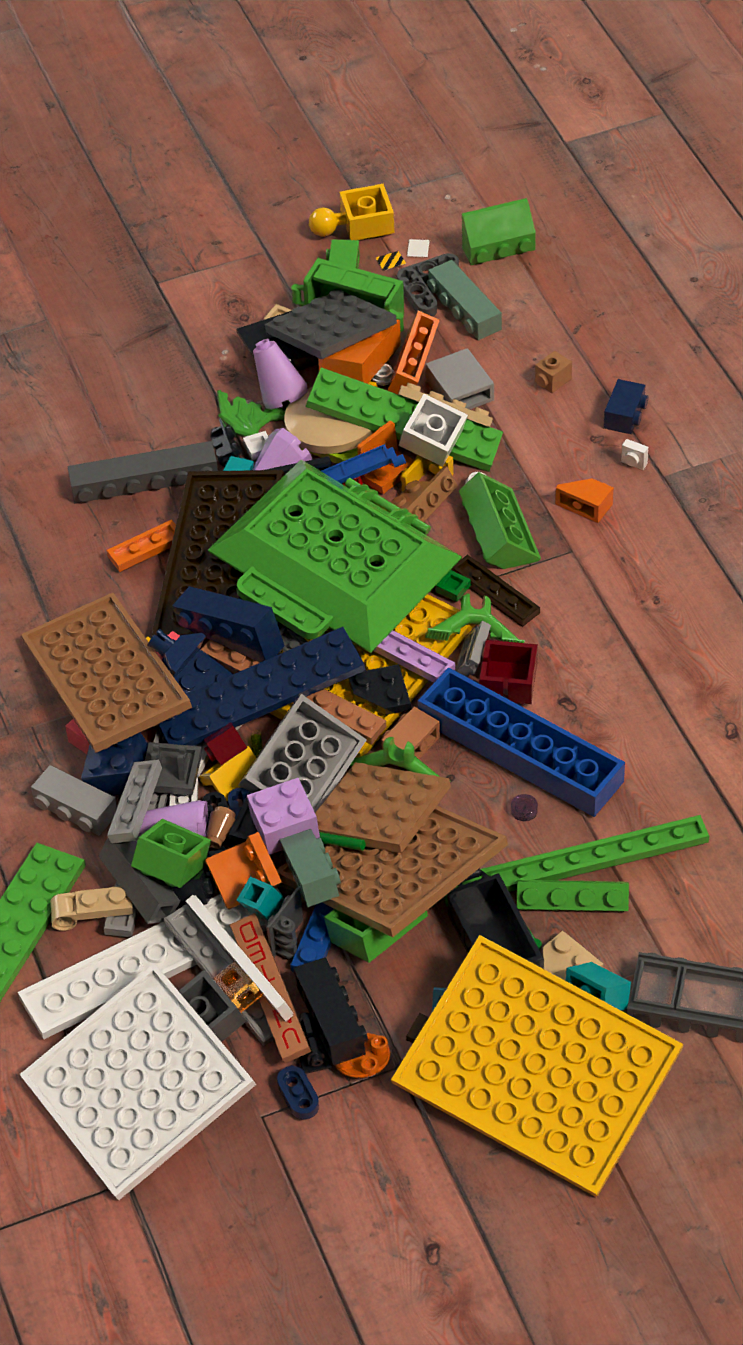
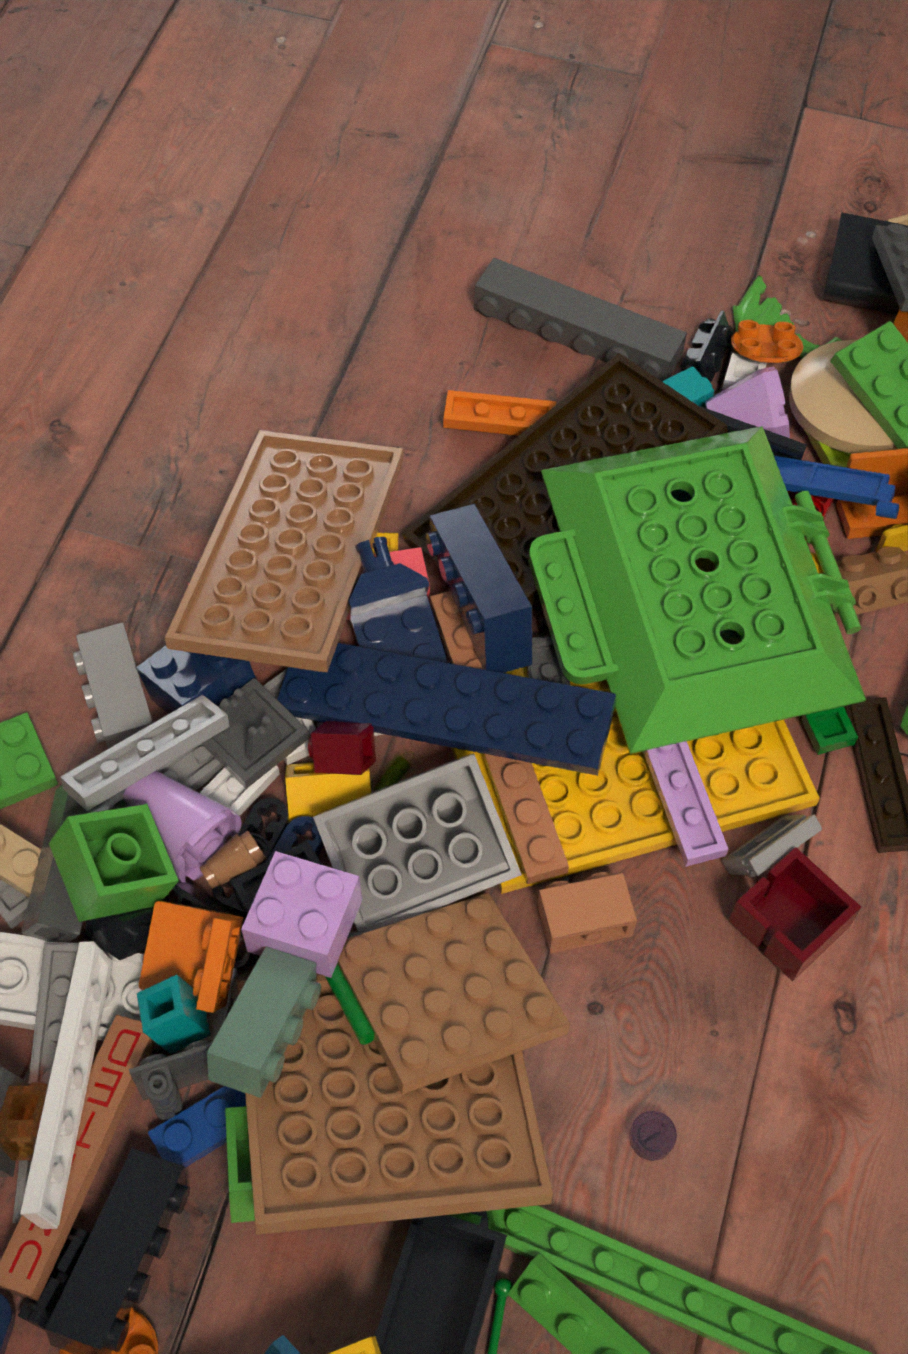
camera: 35 degrees right, 10 degrees up
(257, 421) = (767, 342): none -> orange dish
(277, 375) = (834, 298): lavender cone -> none
(382, 689) = (605, 815): black plate -> none
(396, 756) = (543, 944): bright green piece -> none
(470, 615) = (825, 805): bright green piece -> none
(523, 742) = (727, 1043): blue brick -> none

